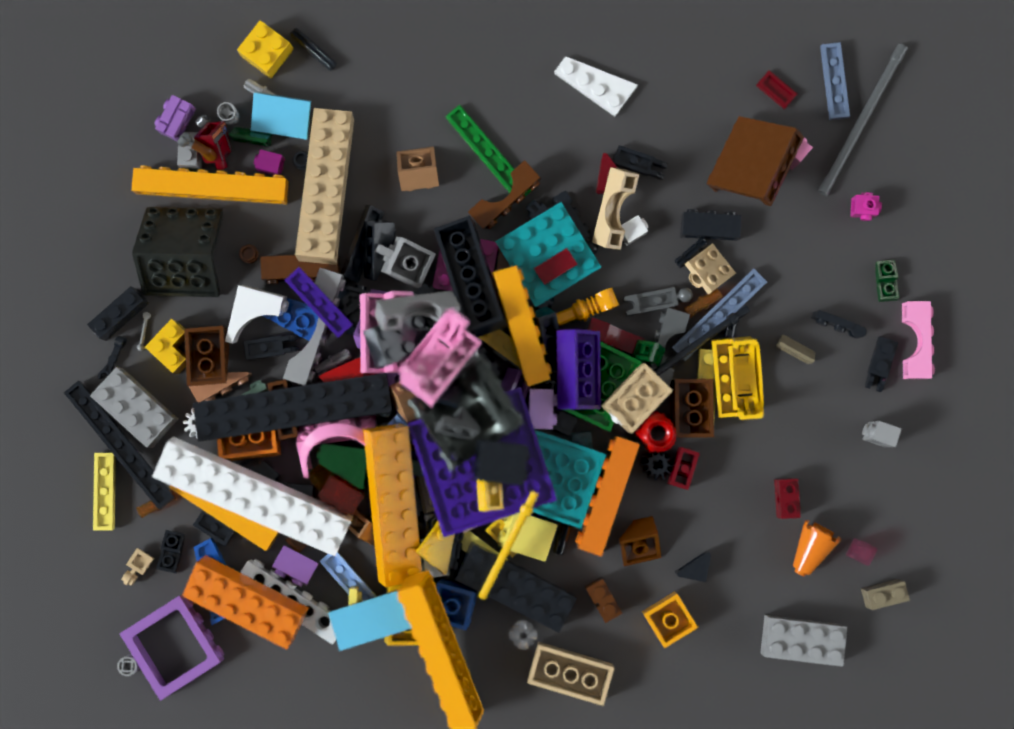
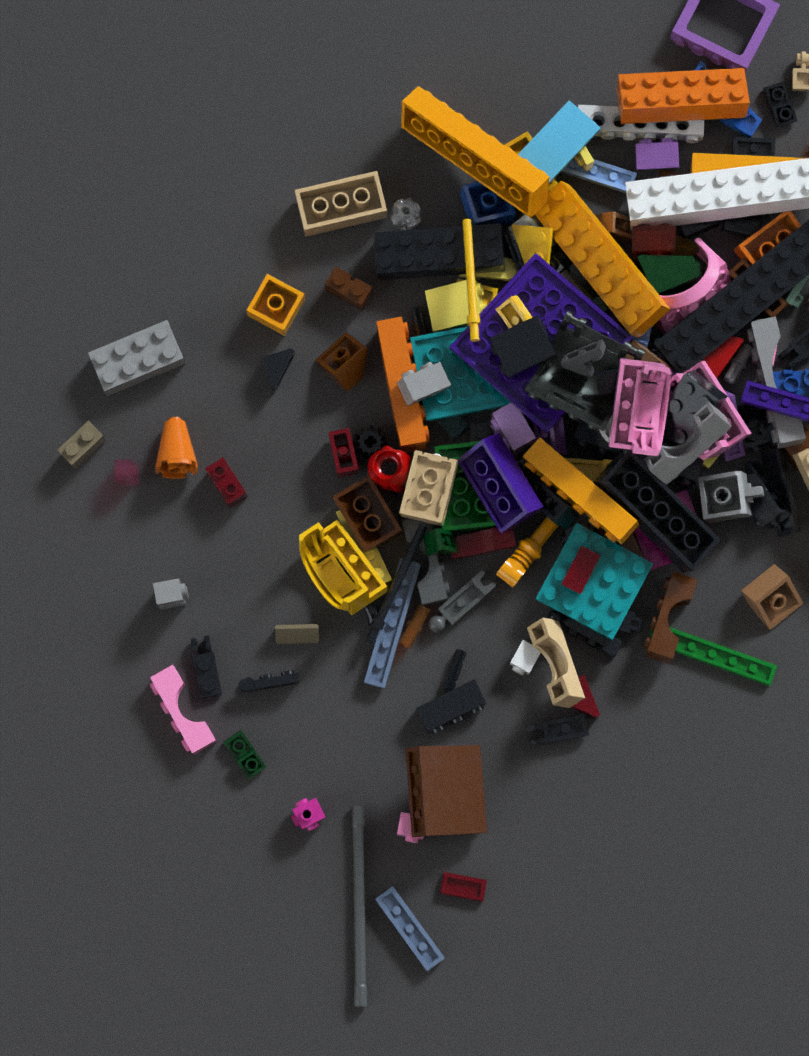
camera: 150 degrees right, 5 degrees down
(594, 482) = (423, 383): none -> light grey piece
(599, 86) = (639, 786): white wing -> none
(709, 269) = (427, 662): tan plate -> none

